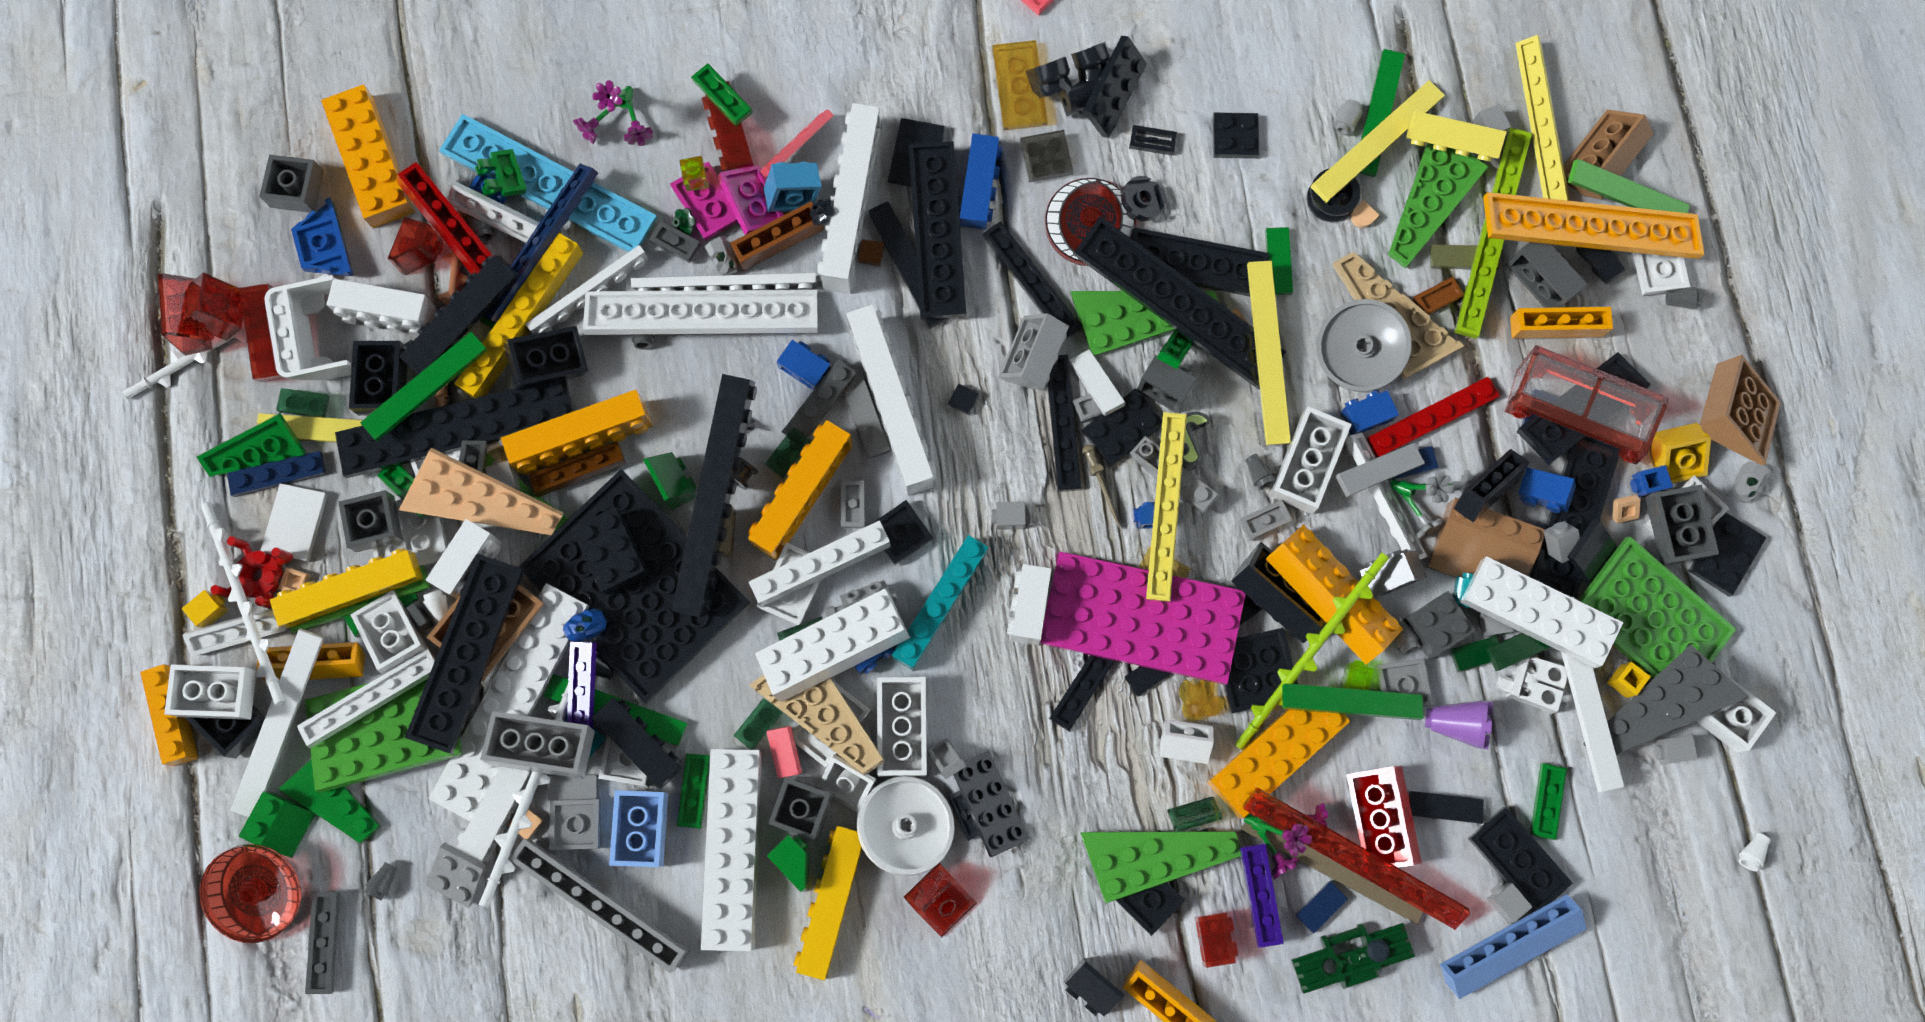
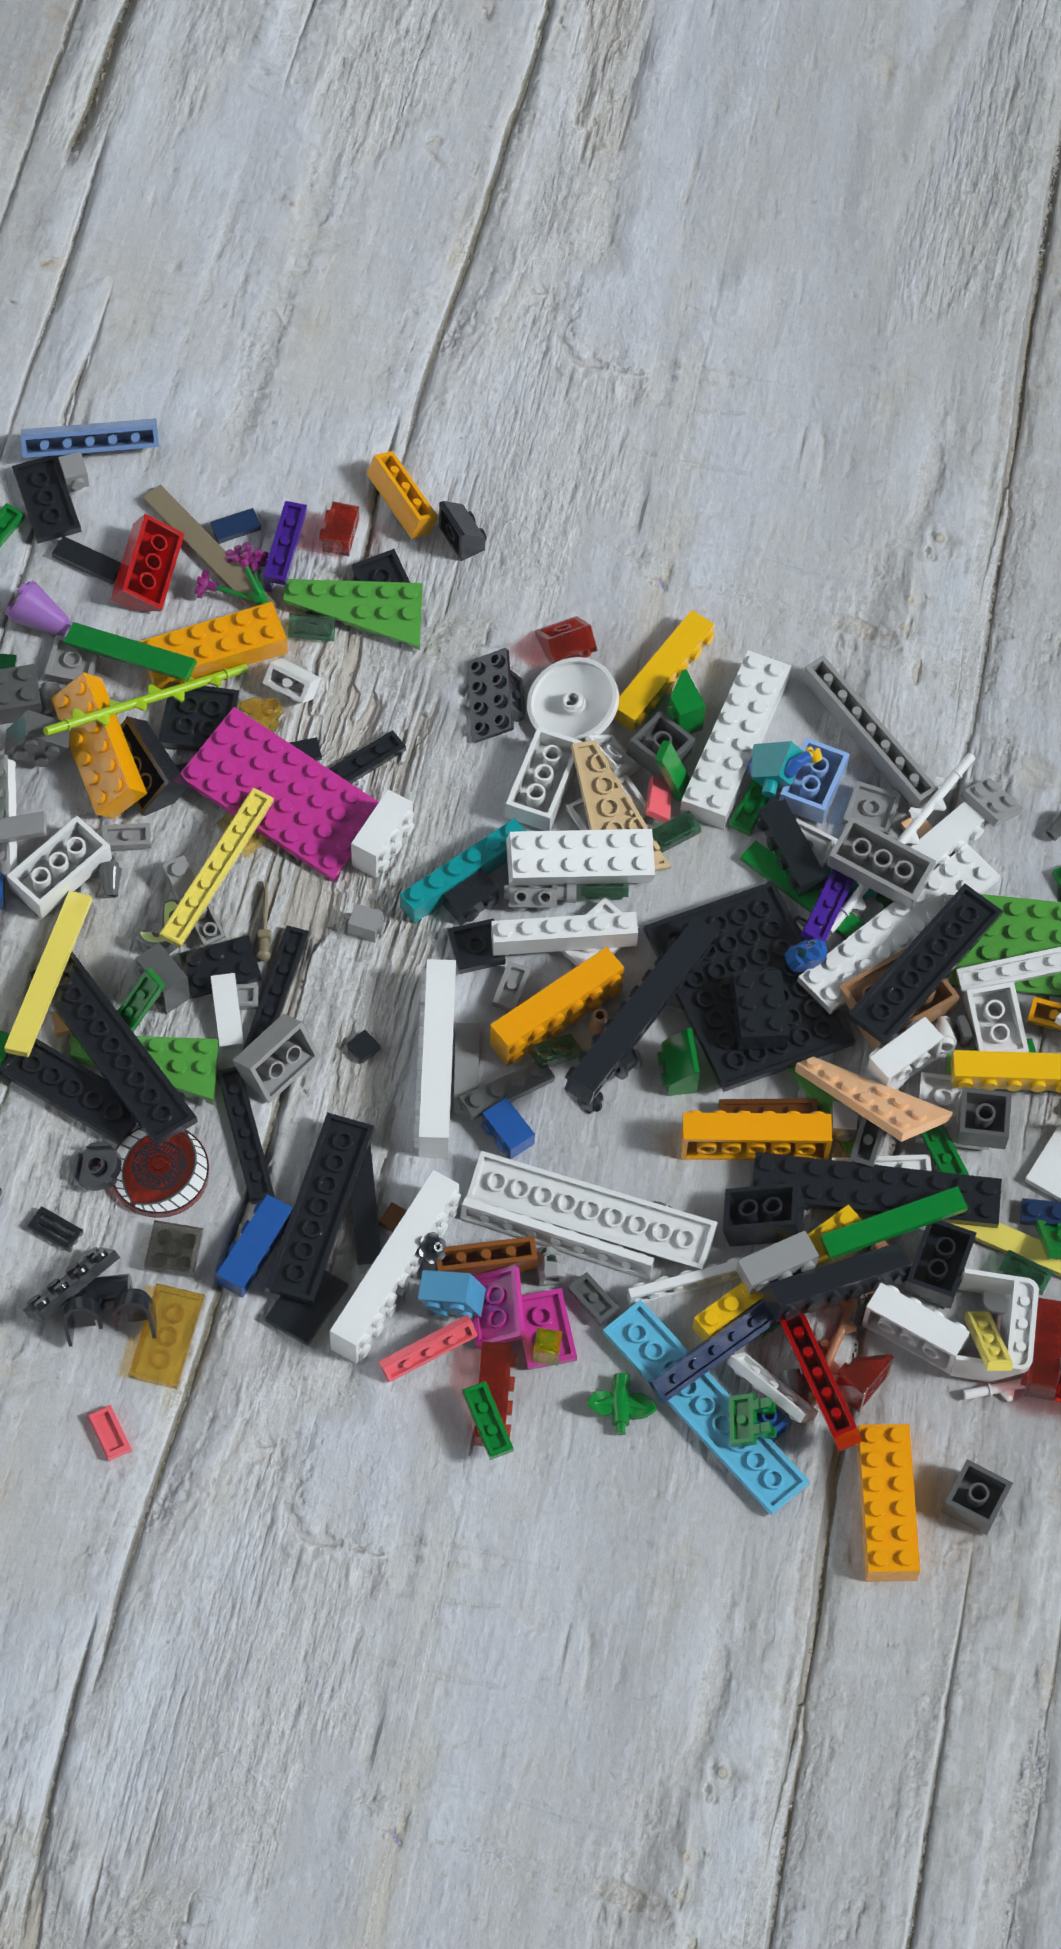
camera: 160 degrees left, 15 degrees down
(311, 311) = (988, 1341): none -> light yellow tile
(322, 243) = (962, 1428): blue wing -> none
(515, 306) = (777, 1262): none -> light grey brick
(612, 98) = (608, 1431): magenta plant -> none
(620, 161) = (620, 1404): none -> green plant
(674, 820) = (778, 763): none -> teal torso
(684, 221) = (576, 1315): dark green plant -> none
(761, 500) = (597, 1022): none -> medium nougat cone
(776, 775) = (672, 769): none -> green tile
(923, 577) = (471, 897): none -> black brick
(946, 758) = (513, 739): light grey tile -> none
(1144, 515) = (237, 878): blue brick -> none
(1357, 676) = (115, 677): clear neon green brick -> none
(1357, 965) = (229, 469): dark green piece -> none
(1359, 860) = (193, 540): clear red plate -> none

